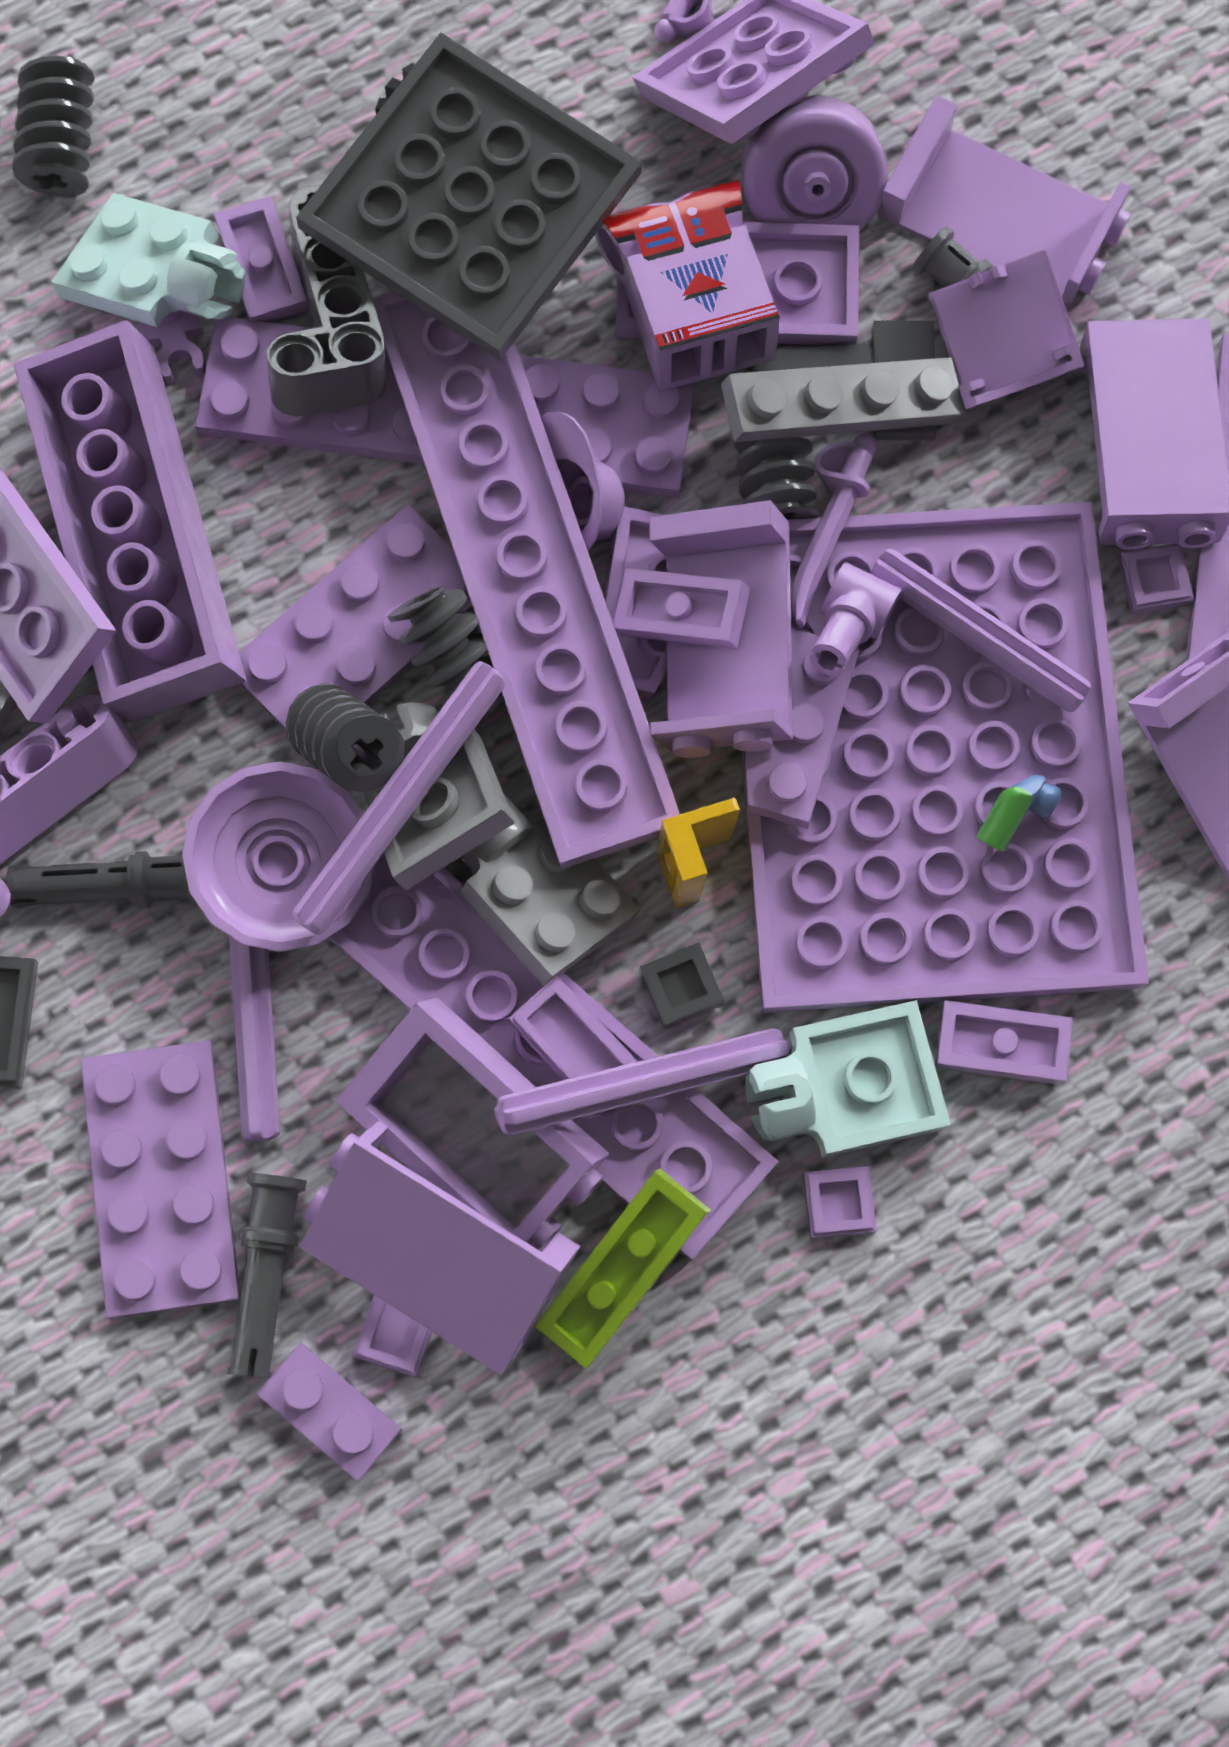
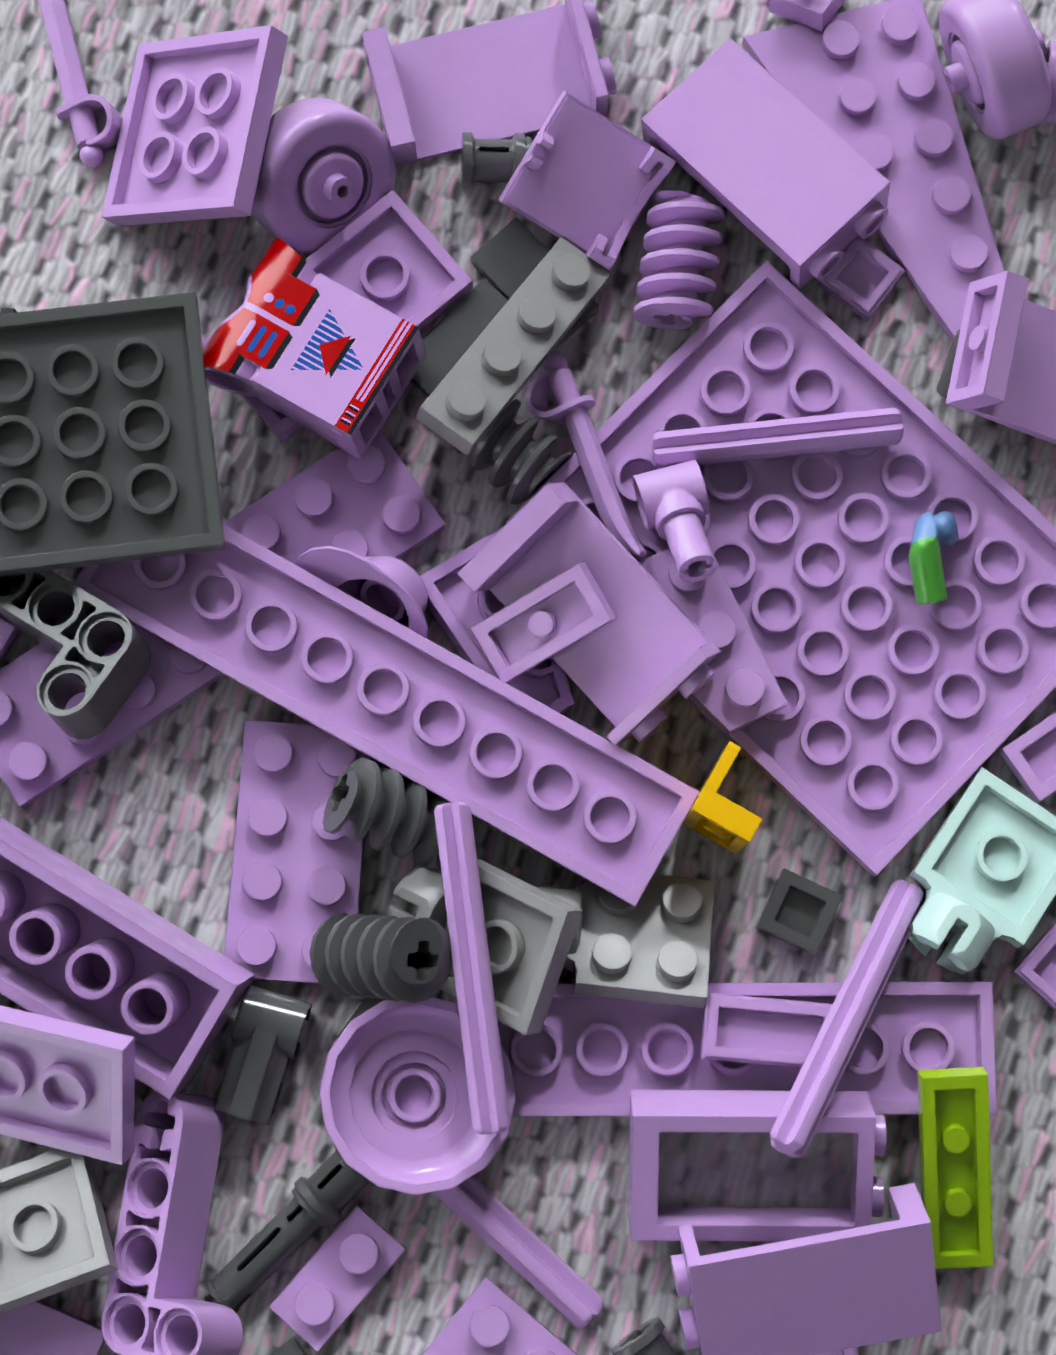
camera: 40 degrees left, 5 degrees up
(106, 947) = (337, 1278): none -> lavender plate
(211, 736) = (265, 1041): none -> dark grey piece
(1024, 445) = (675, 260): none -> lavender piece

